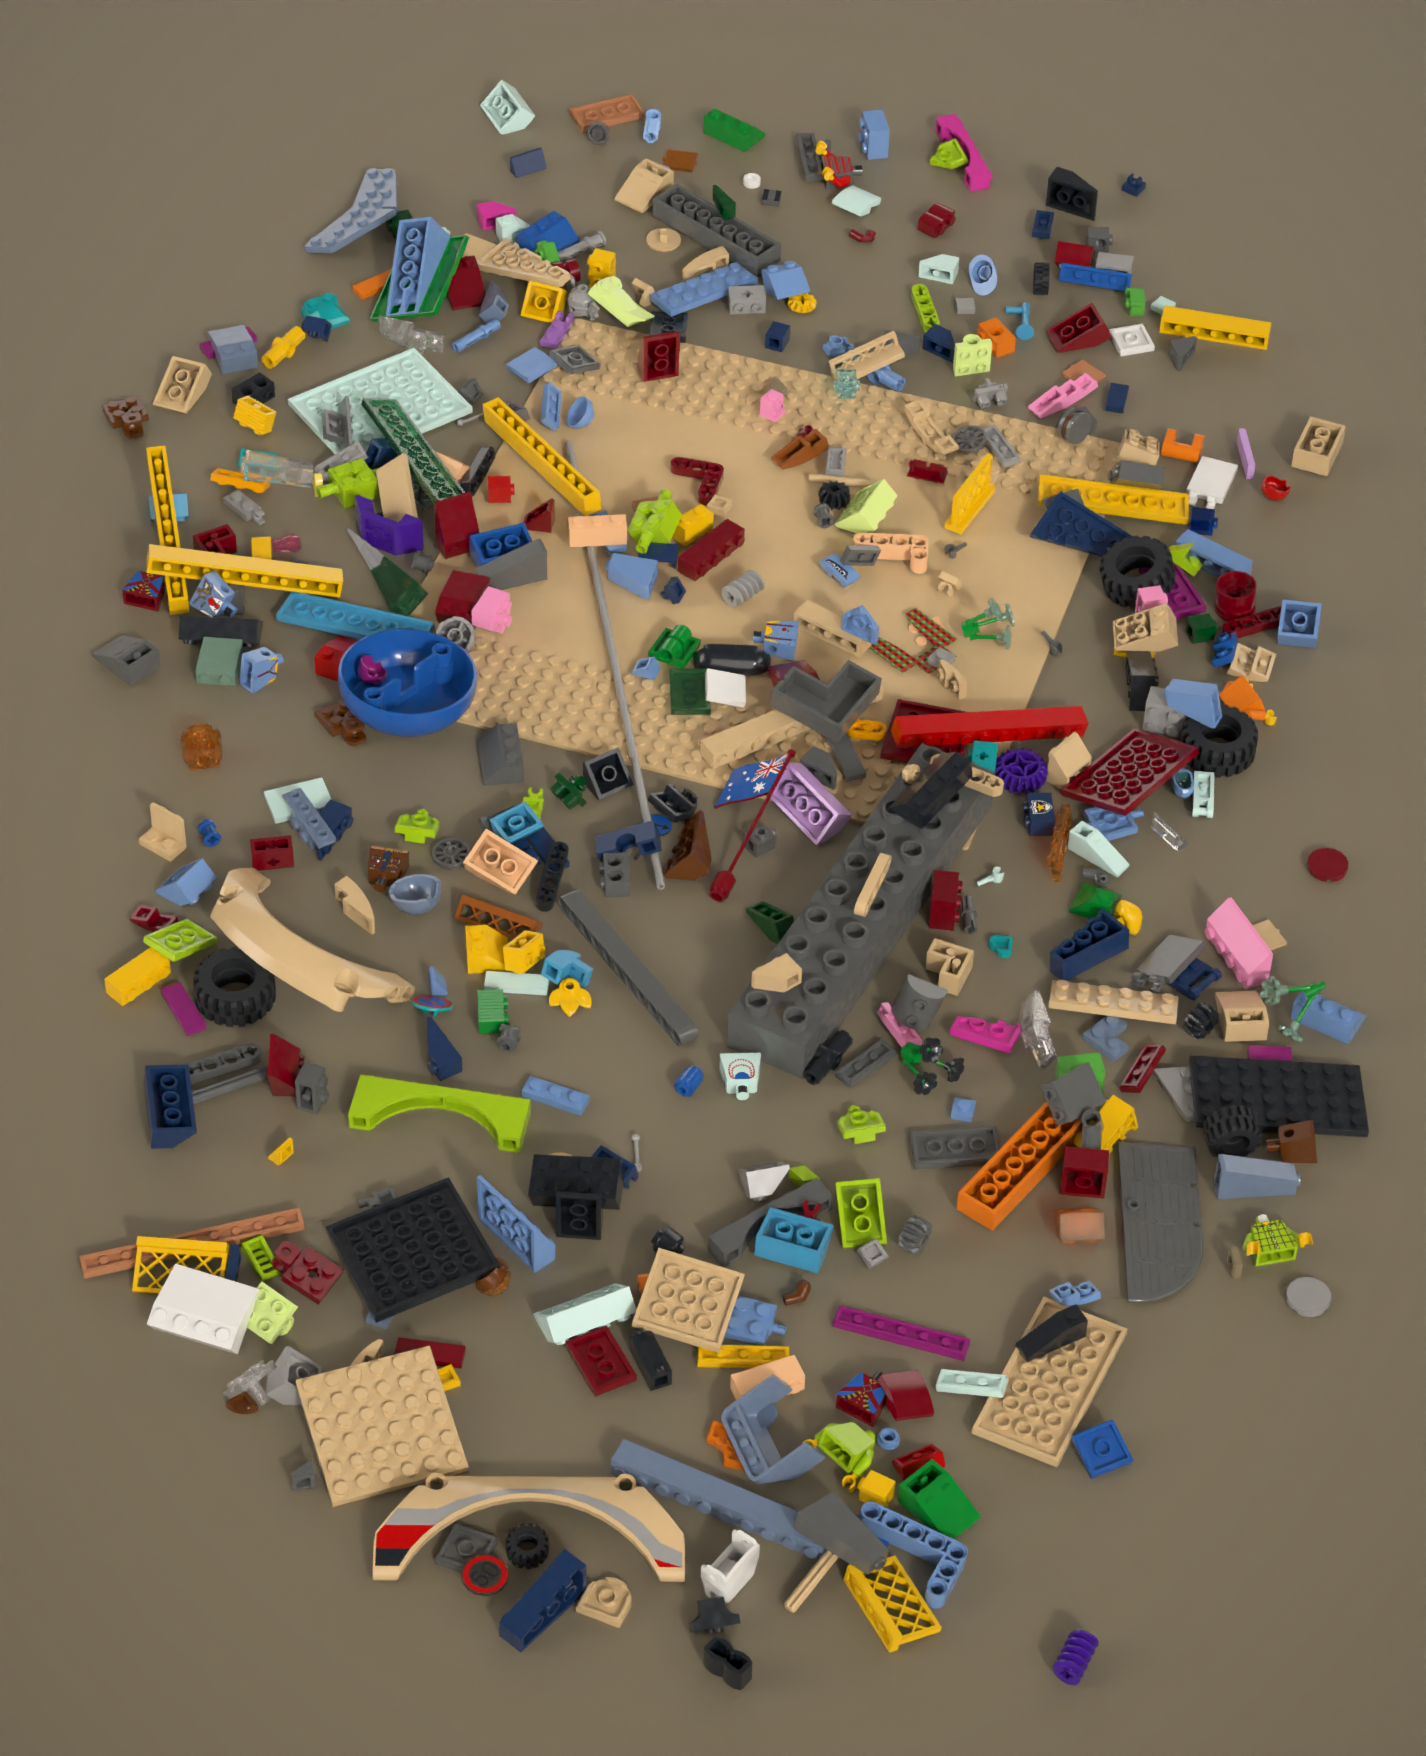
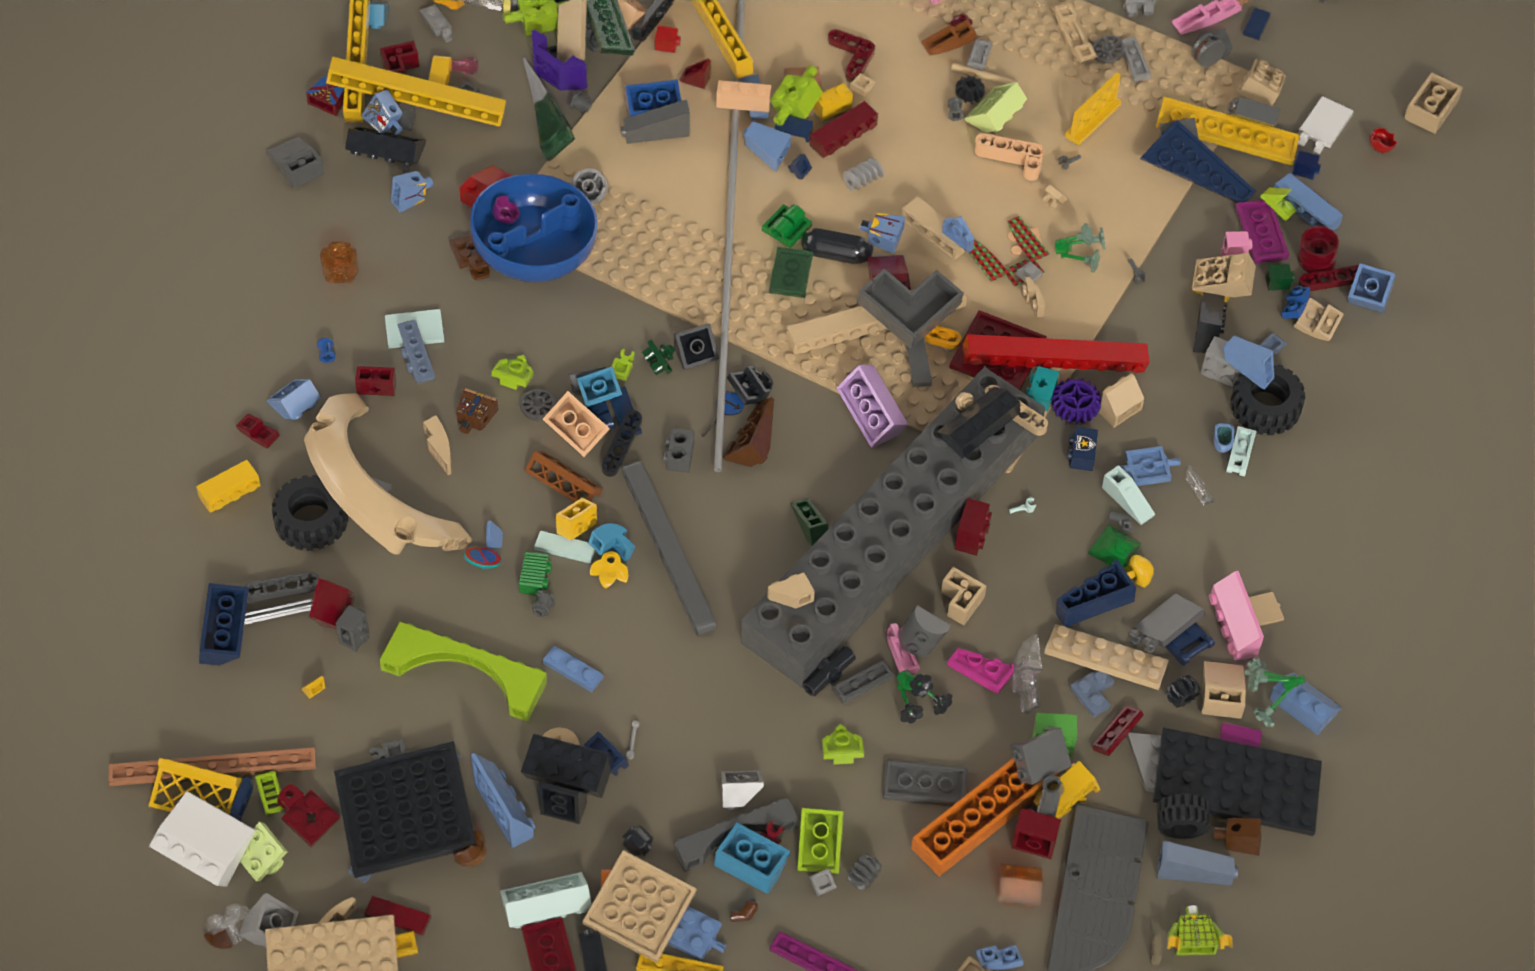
camera: 10 degrees right, 10 degrees up
(166, 834) = (286, 347): tan bracket -> none
(180, 940) = (273, 456): lime tile -> none
(183, 1009) = (262, 525): magenta tile -> none
(219, 661) = (376, 176): sand green brick -> none
(338, 819) = (441, 355): dark blue slope -> none
(343, 617) = (501, 151): dark azure plate -> none
(416, 893) = (493, 442): sand blue cylinder -> none
(443, 1057) = (478, 610): dark blue slope -> none
(454, 524) = (615, 72): dark red slope -> none
(460, 595) = (605, 147): dark red slope -> none
(484, 949) = (542, 507): yellow slope -> none
(493, 610) = (628, 165): bright pink brick -> none
(501, 755) = (605, 311): dark grey slope -> none
(643, 835) = (713, 419): dark blue arch -> none
(646, 668) = (757, 242): medium blue slope -> none
(689, 1081) = (696, 675): blue brick -> none
(725, 687) = (823, 274): white tile -> none
(740, 1073) = (745, 675): light aqua torso -> none
(744, 785) = (819, 378): flag -> none
(761, 840) = (819, 435): flat silver brick -> none
(801, 1175) = (778, 790): lime slope -> none
(821, 766) = (890, 369): dark grey slope -> none
(844, 574) = (957, 166): medium blue slope -> none
(860, 555) = (978, 156): dark grey plate -> none
(872, 884) = (901, 511): tan beam -> none
(919, 470) = (1065, 79): dark red hinge -> none
(963, 1109) = (941, 745): medium blue plate -> none
(969, 914) = (993, 542): dark grey axle -> none
(1001, 945) = (1017, 579): teal tile -> none
(1059, 845) = (1096, 478): clear orange hinge -> none
(1129, 771) = (1176, 419): dark red plate -> none
(1134, 554) = (1225, 194): black tyre -> none
(1180, 450) = (1305, 89): orange connector -> none
(1243, 696) = (1298, 358): orange torso -> none
(1245, 453) = (1363, 99): lavender tile -> none
(1327, 864) = (1341, 543): dark red tile -> none

